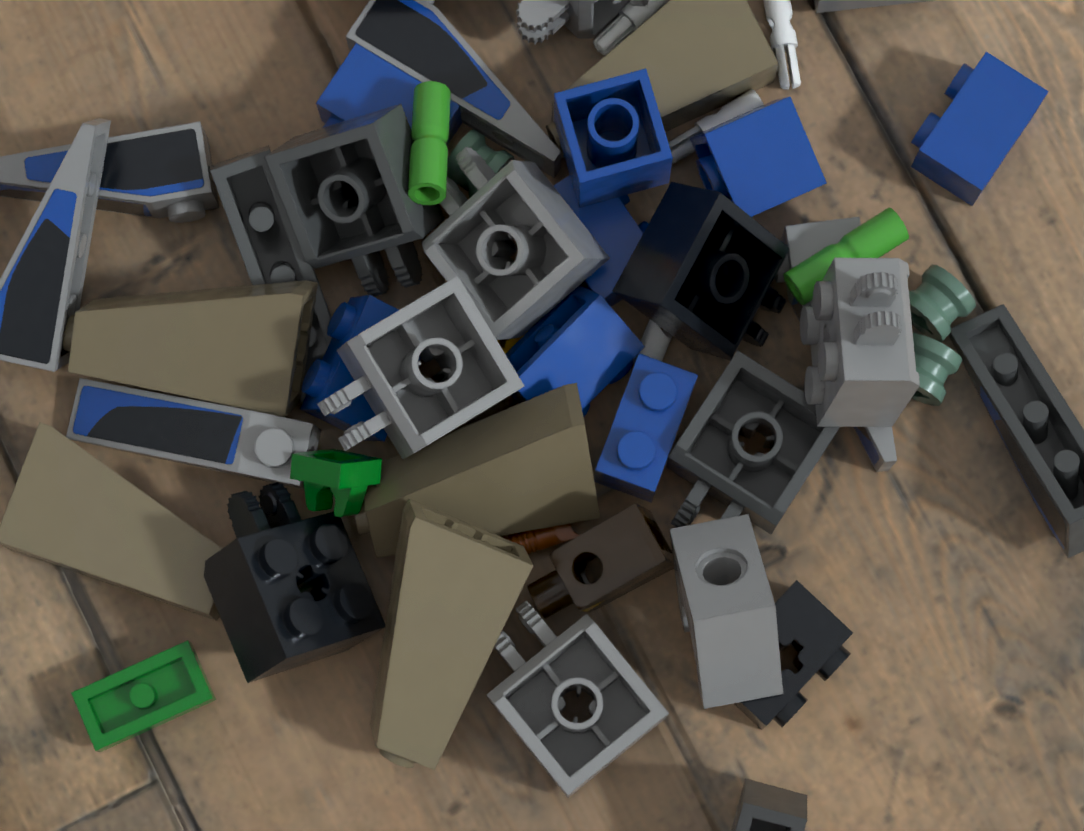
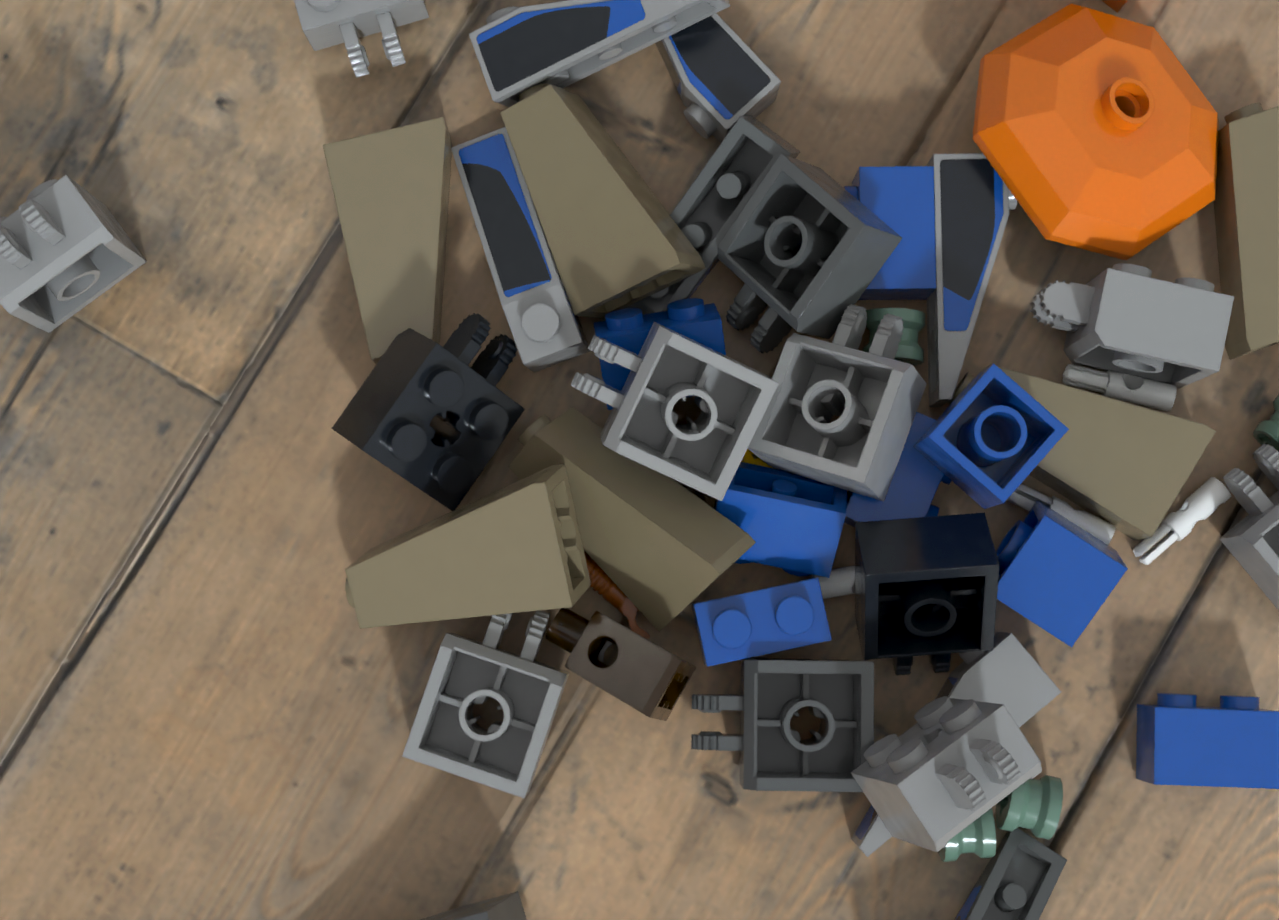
camera: 55 degrees right, 5 degrees up
(143, 696) = (278, 349): green plate -> none
(336, 474) = (547, 390): green tile -> none
(429, 147) = (879, 286): bright green piece -> none
(727, 610) = (643, 794): light grey piece -> none
(818, 640) = (671, 844): black brick -> none
(866, 241) = (1027, 707): bright green piece -> none

